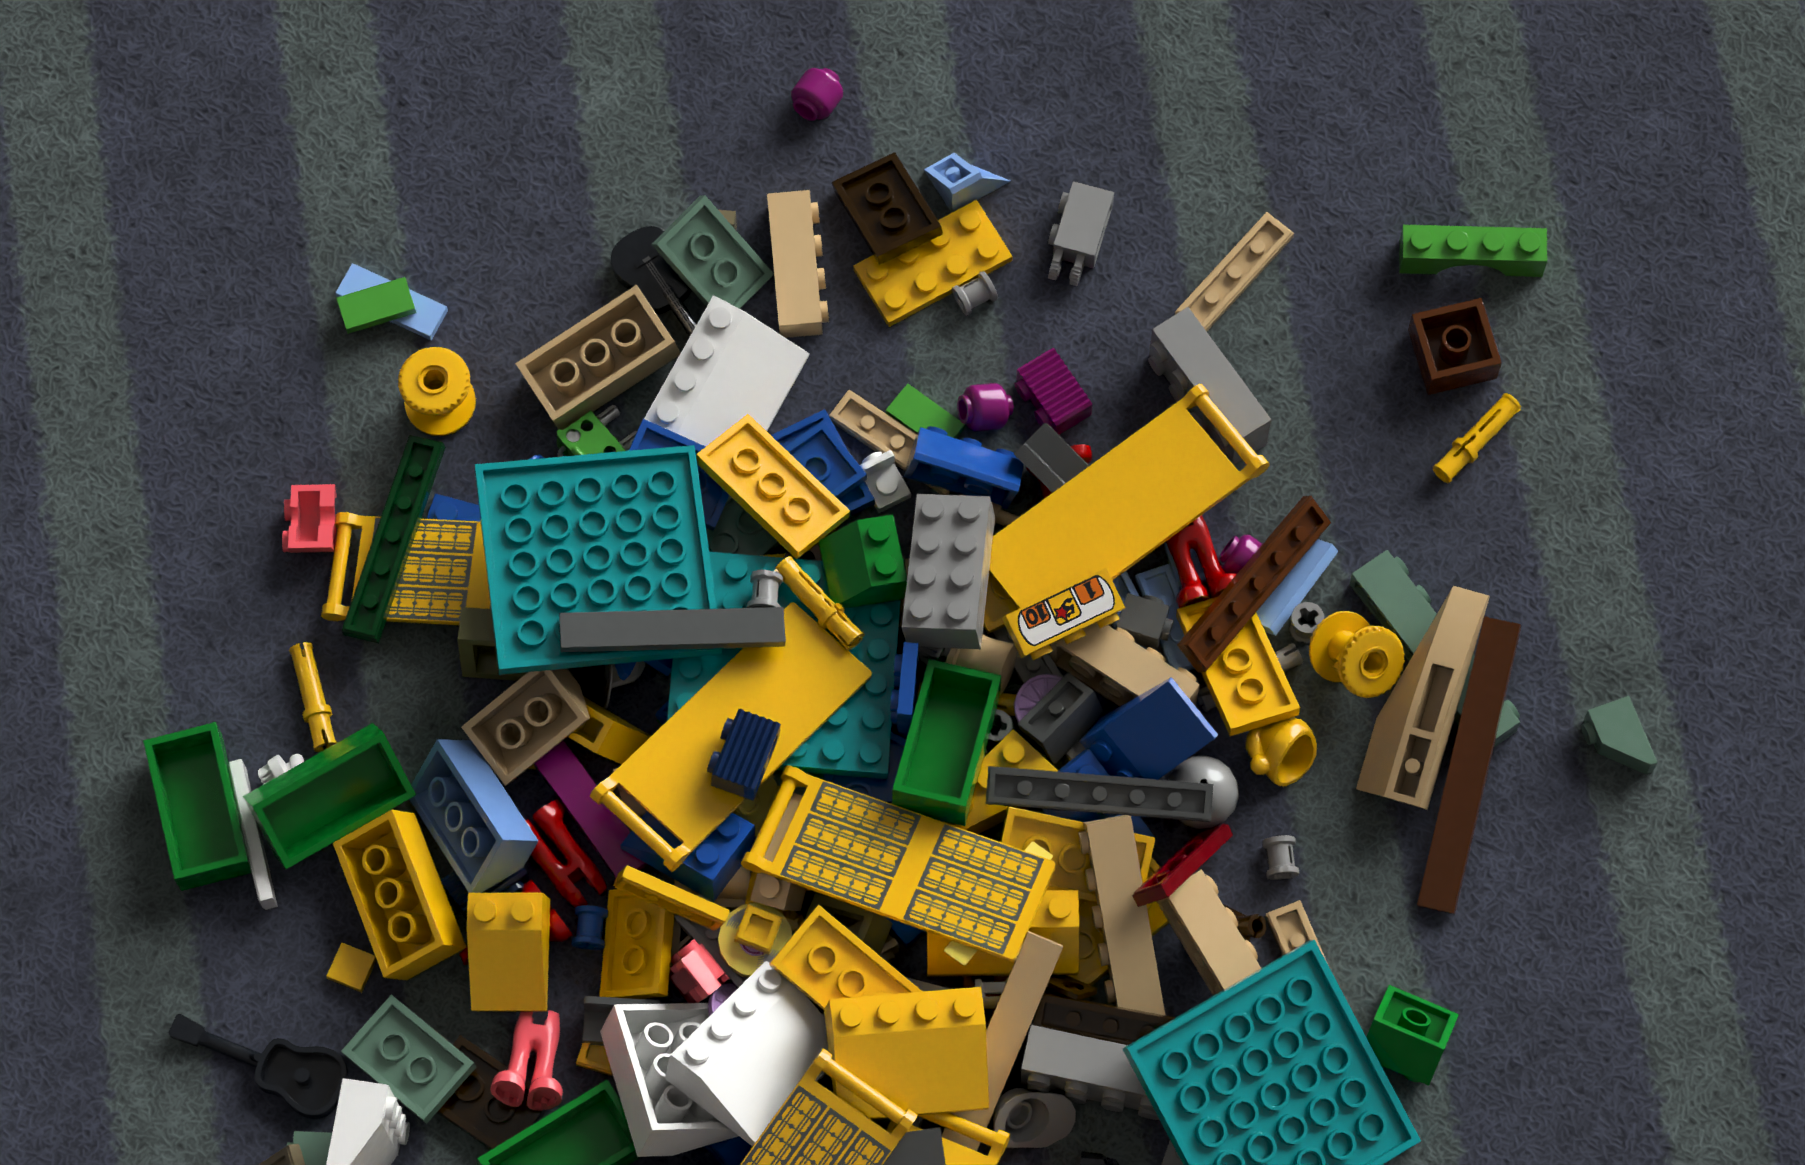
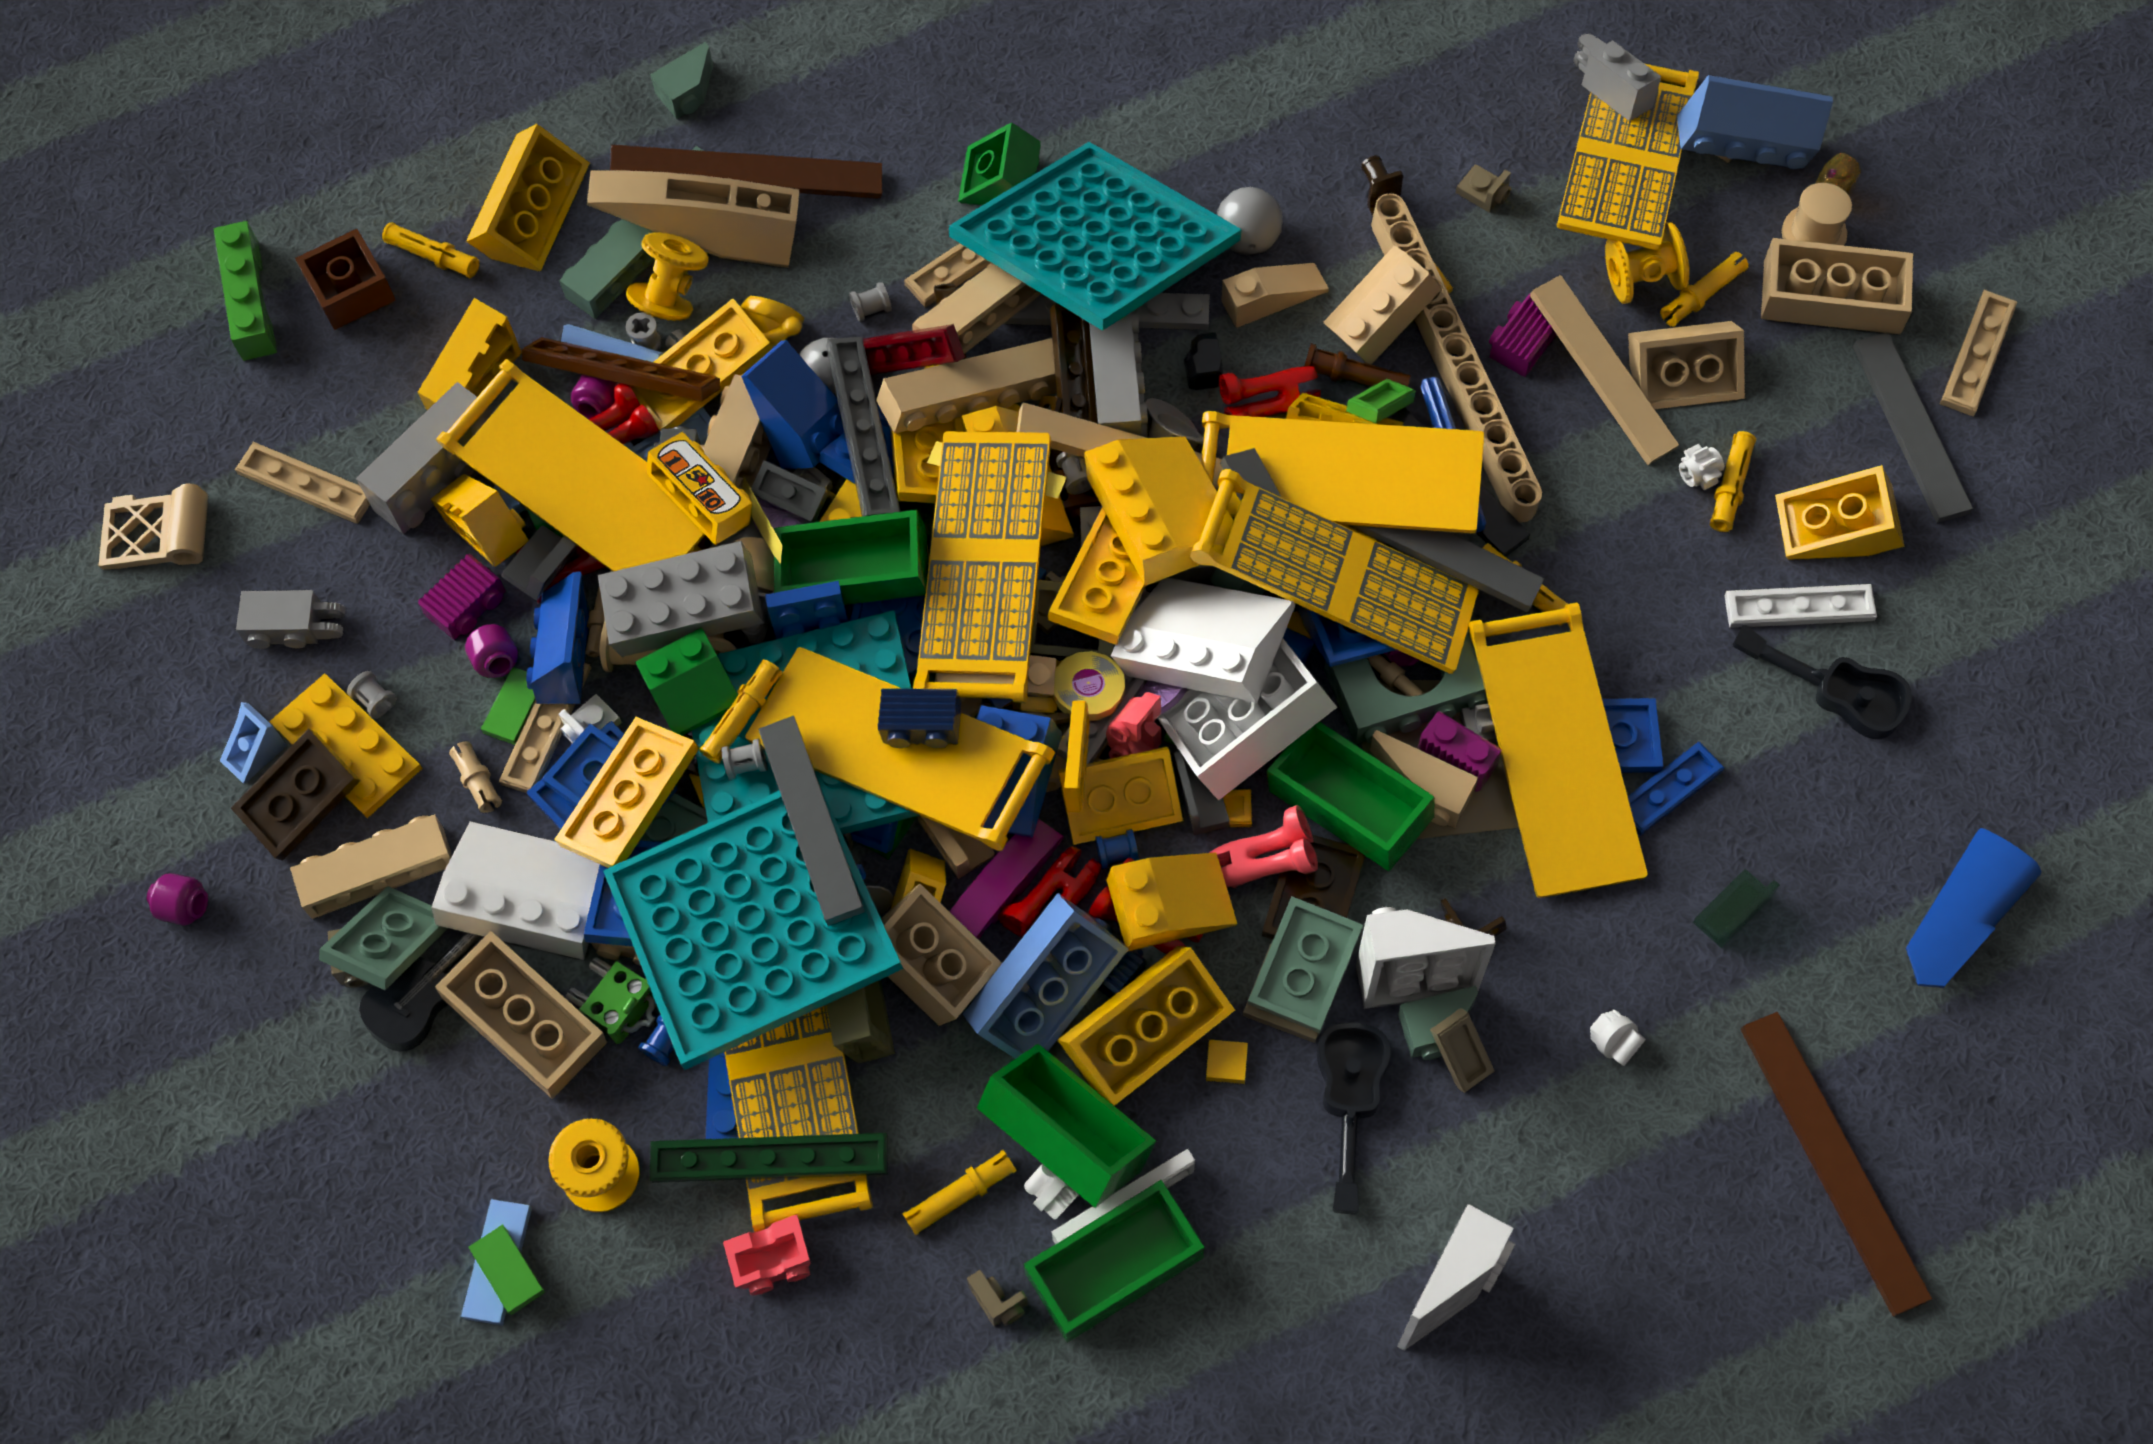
camera: 105 degrees left, 5 degrees down
(65, 1088) = (1465, 1268): none -> white slope
(208, 695) = (989, 1294): none -> dark tan bracket
(758, 929) = (1079, 679): yellow tile -> none
(859, 369) = (475, 777): none -> tan pin
(1020, 669) = (763, 524): none -> light yellow sticker
(1110, 417) = (481, 518): none -> yellow wedge
(1214, 153) = (180, 527): none -> tan piece
(1315, 446) = (472, 353): none -> yellow wedge
(1508, 544) = (528, 200): none -> yellow slope

